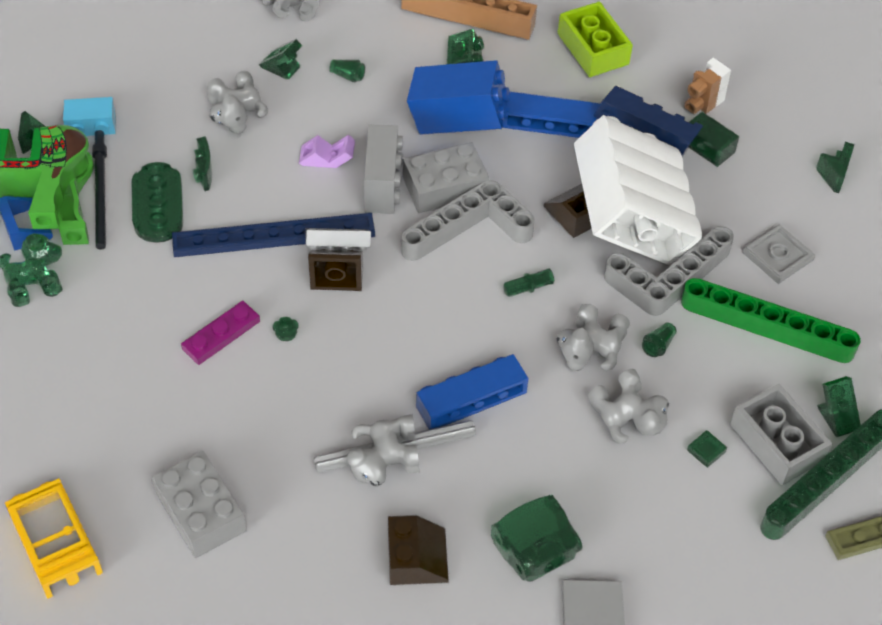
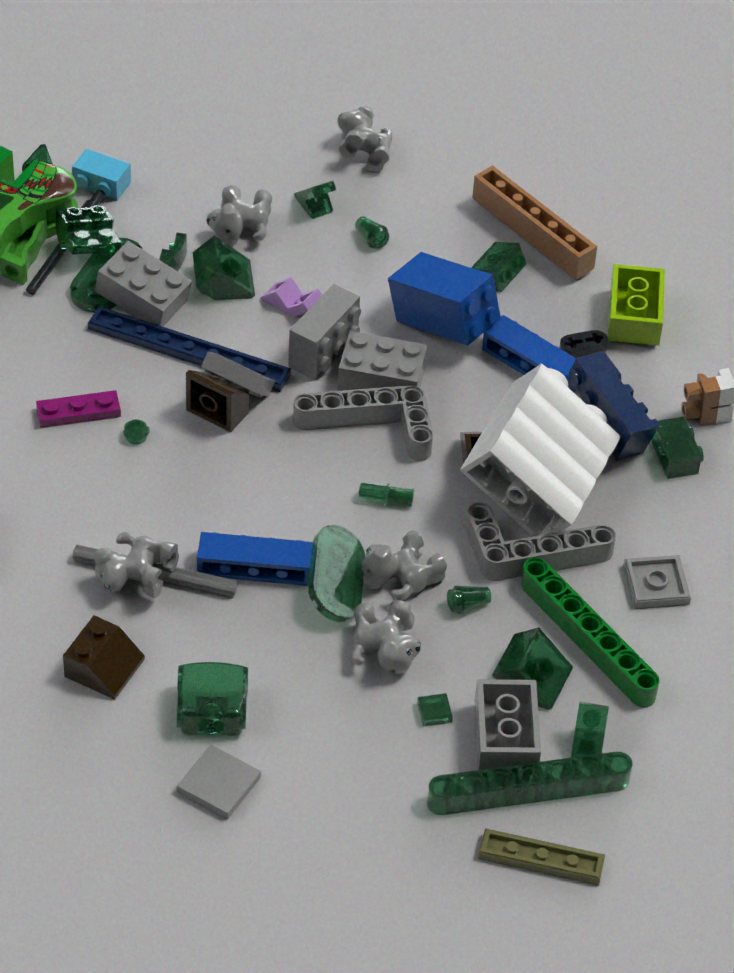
camera: 30 degrees right, 5 degrees down
(117, 171) = (86, 230): none -> clear green brick
(201, 197) = (143, 285): none -> light grey brick
(254, 156) = (222, 271): none -> clear green slope
(548, 371) = (336, 573): none -> clear green tile
(572, 86) = (584, 343): none -> black beam
(751, 369) = (536, 658): none -> clear green slope

